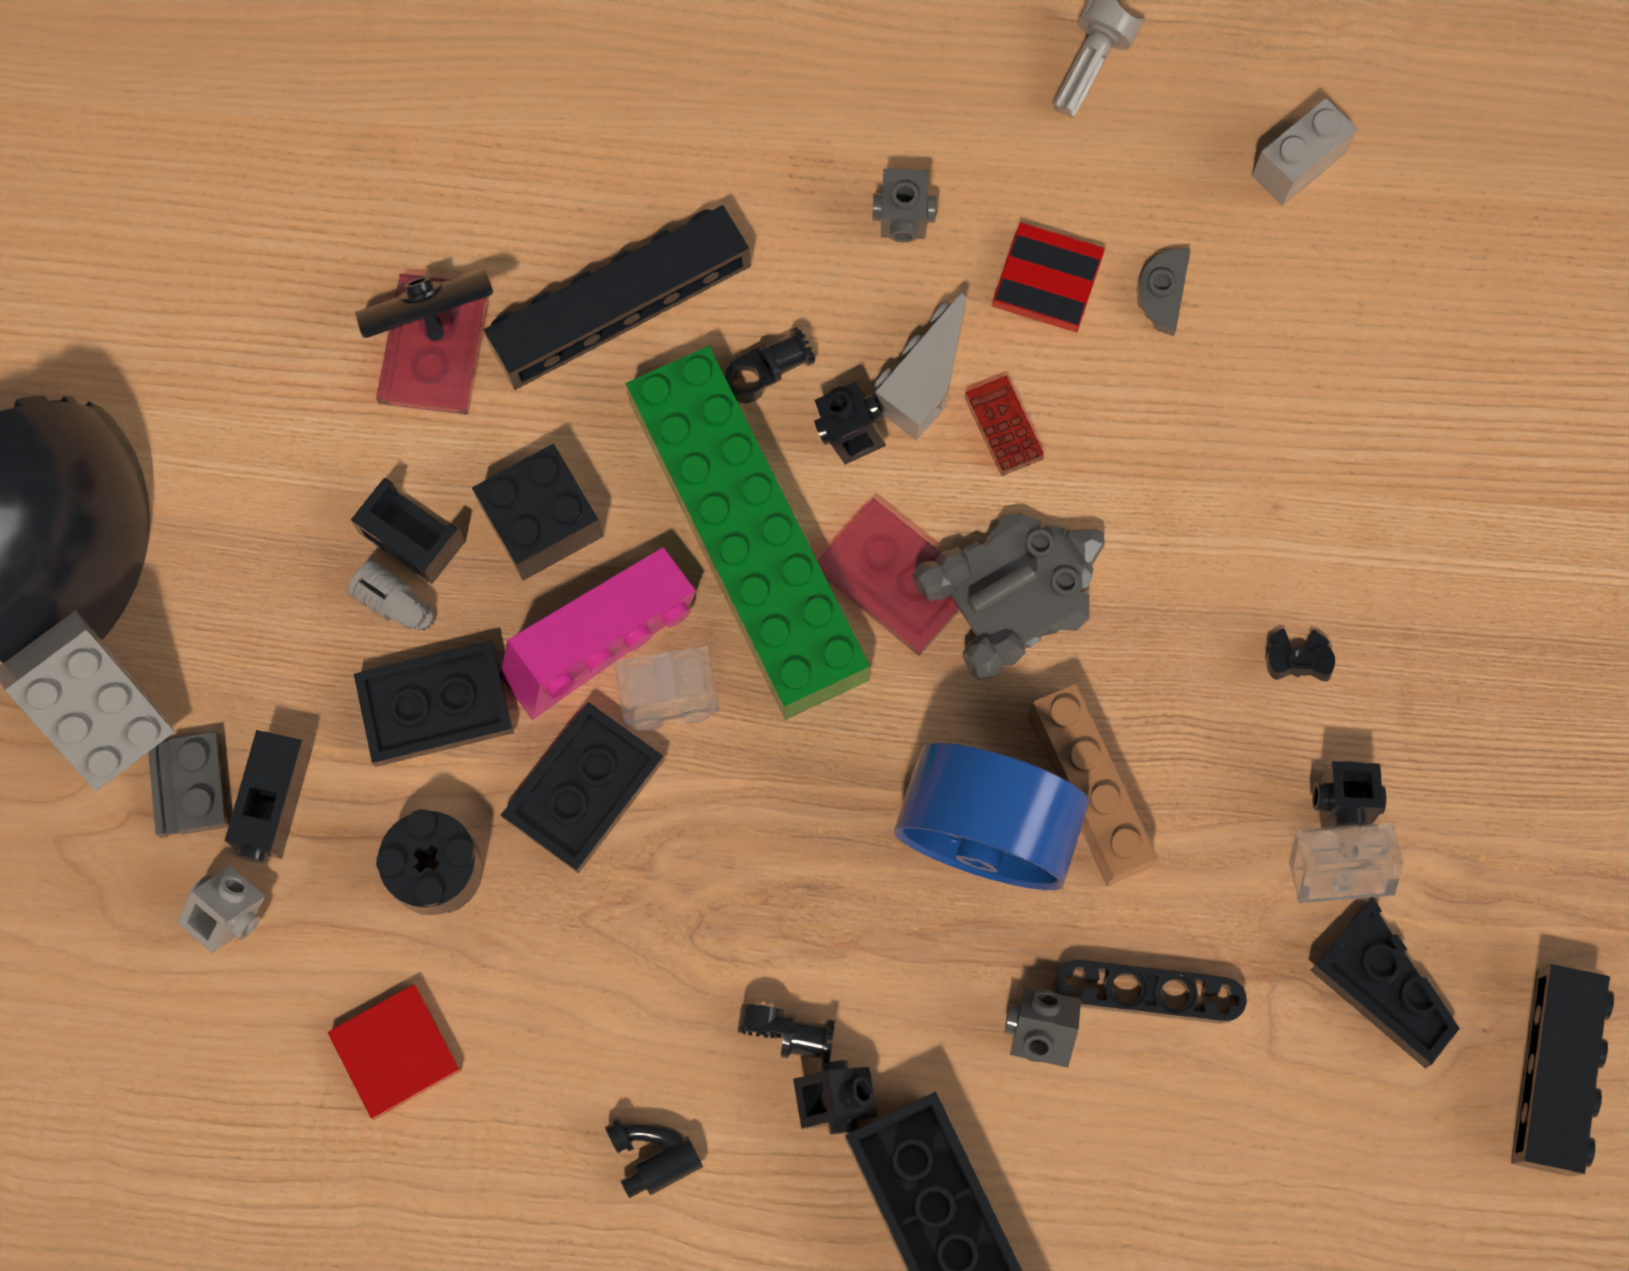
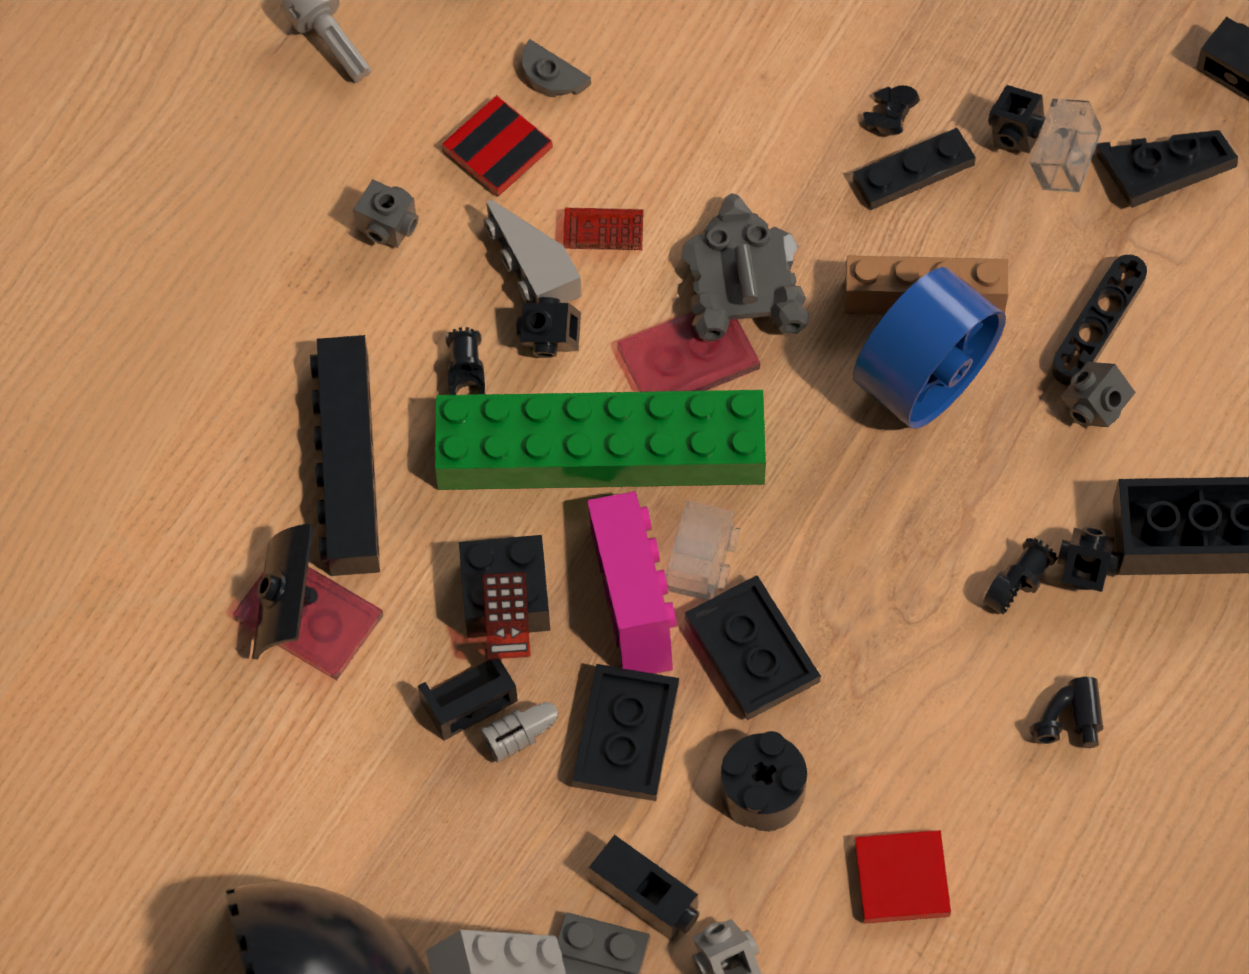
camera: 65 degrees left, 10 degrees down
(484, 524) = (506, 616): none -> tile
(1240, 712) = (914, 168): none -> black plate

